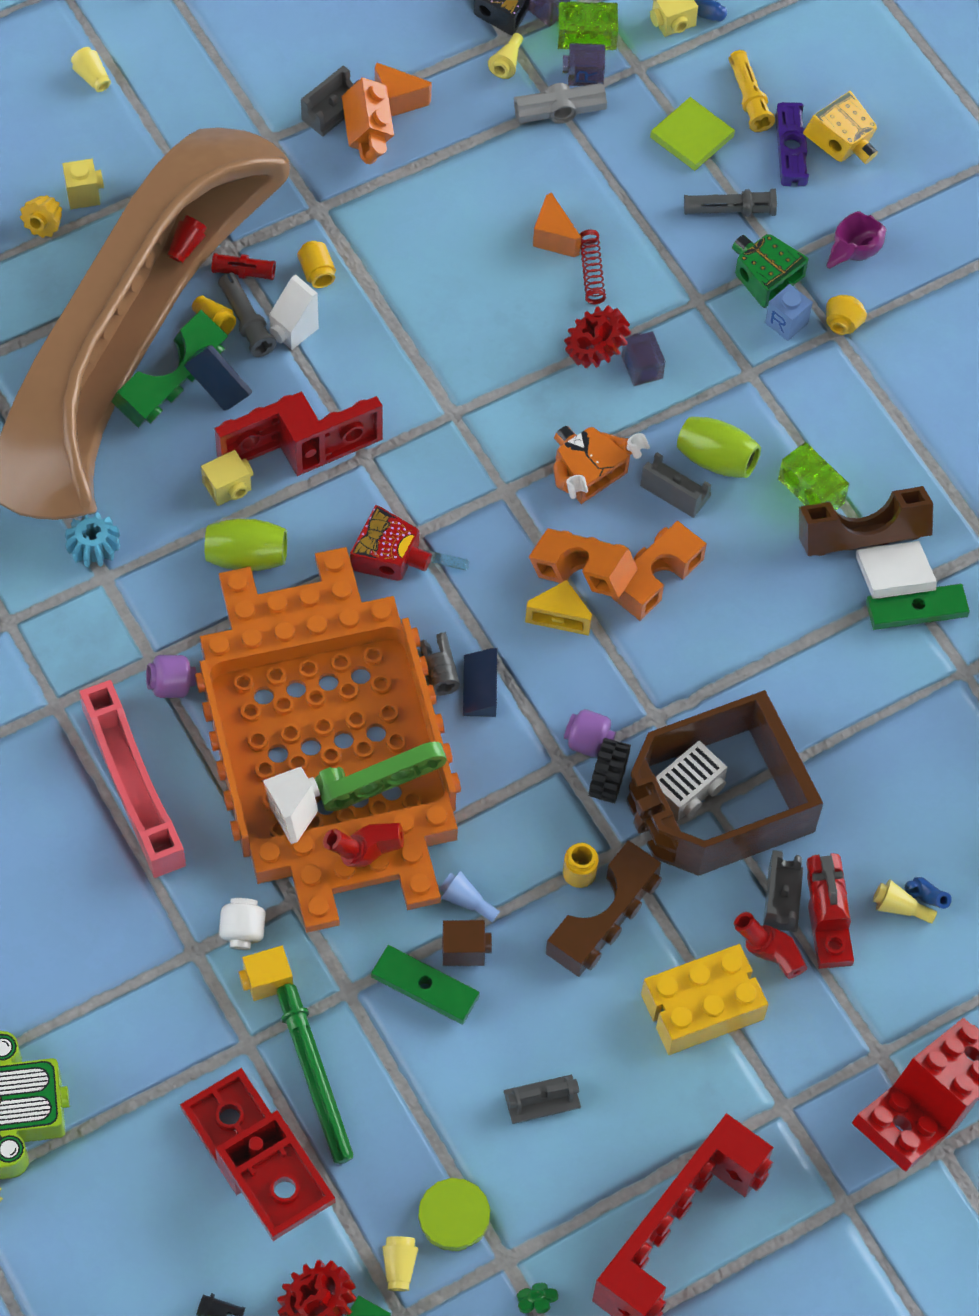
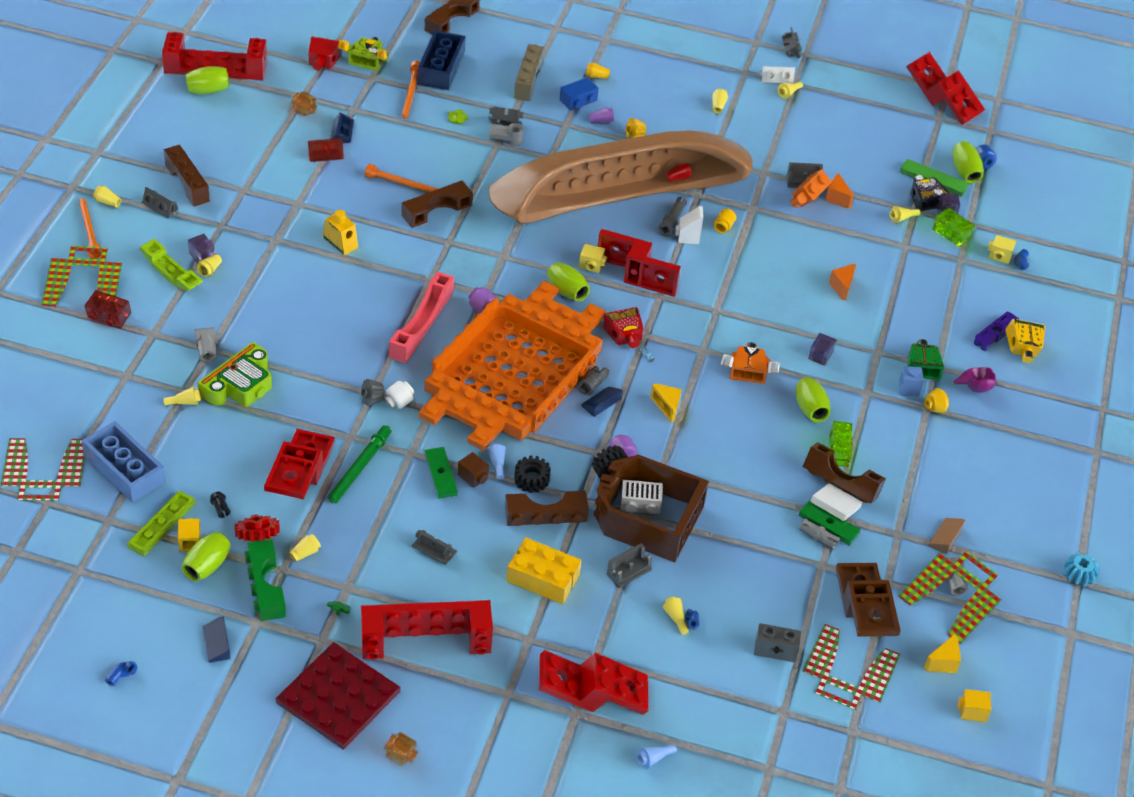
camera: 45 degrees right, 15 degrees down
(82, 183) = (664, 124): light yellow brick -> none
(92, 539) = (513, 238): medium azure gear -> none
(144, 394) = (596, 210): green arch -> none
(204, 953) = (372, 391): none -> dark grey piece
(216, 312) = (659, 207): yellow cone -> none
(217, 377) = (630, 220): dark blue slope -> none
(243, 266) = (693, 200): red pin -> none
(265, 972) = (386, 415): yellow brick -> none
(292, 801) = (468, 368): white slope -> none
(343, 791) = (494, 382): bright green beam -> none
(365, 844) = (472, 400): red arm -> none
(454, 1214) = (348, 553): lime tile -> none
(530, 857) = (530, 482): none -> black tyre
(560, 103) = (905, 243): light grey piece -> none
(580, 865) = (555, 484): yellow brick -> none
(584, 64) = (934, 239): clear purple brick -> none
(596, 290) = (839, 303): red piece -> none
(597, 336) = (810, 325): red gear -> none
(604, 565) = (698, 388): orange arch -> none
(672, 550) = (743, 418): orange arch -> none
(674, 487) = (776, 400): dark grey hinge -> none
(692, 133) = (954, 296): lime tile -> none
(746, 202) = (944, 335): dark grey pin -> none
(754, 100) = (999, 303): yellow pin -> none
(770, 945) = (598, 577): red arm -> none
(829, 911) = (639, 588): red plate -> none
(923, 632) = (819, 533): none -> light grey pin

